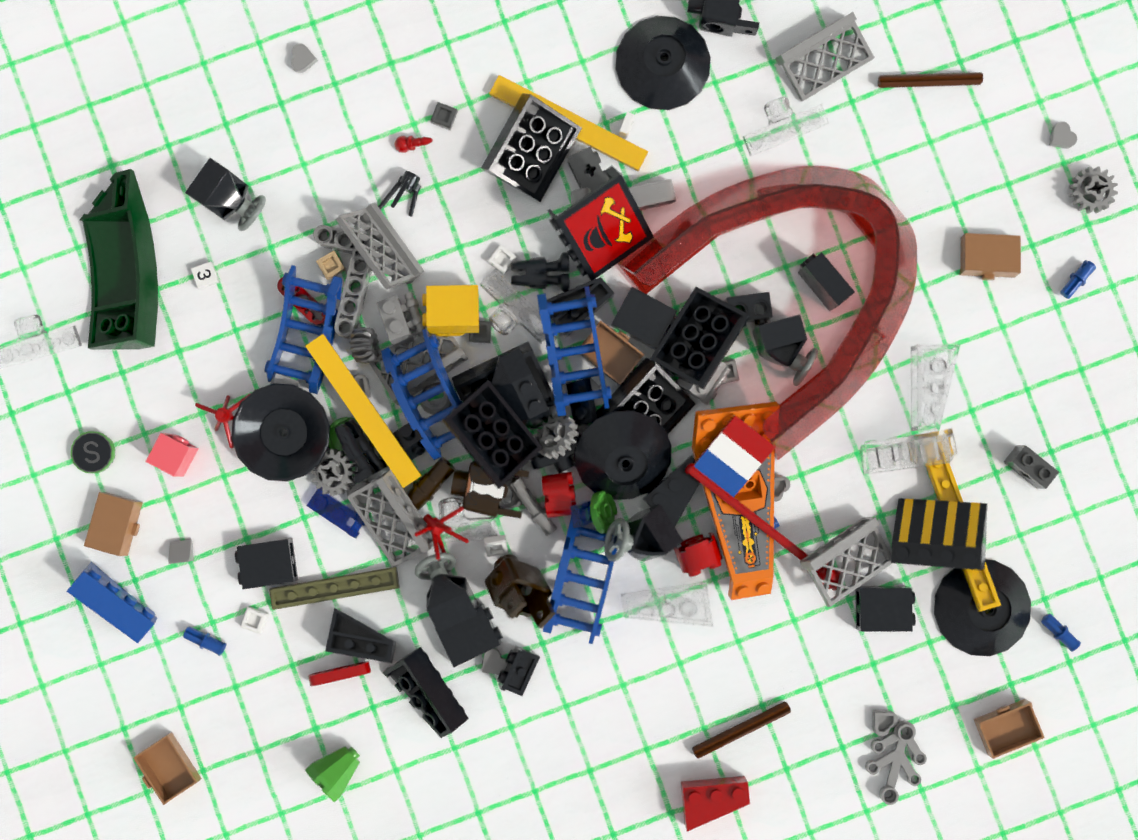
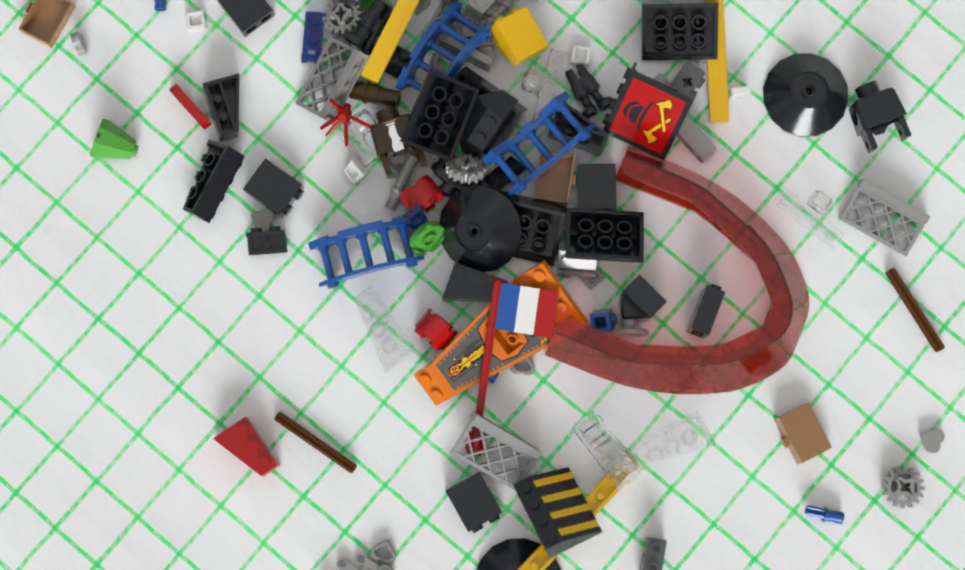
camera: 55 degrees right, 5 degrees down
(211, 750) = (79, 44): none -> light grey tile
(334, 588) = (254, 67): olive tile -> none
(449, 596) = (296, 154): black piece -> none
(484, 334) = (514, 73): dark grey tile -> none
(508, 588) = (329, 196): dark brown piece -> none
(643, 536) = (424, 277): black piece -> none
(747, 304) = (654, 262): black brick -> none
(778, 385) = (603, 319): none -> blue brick

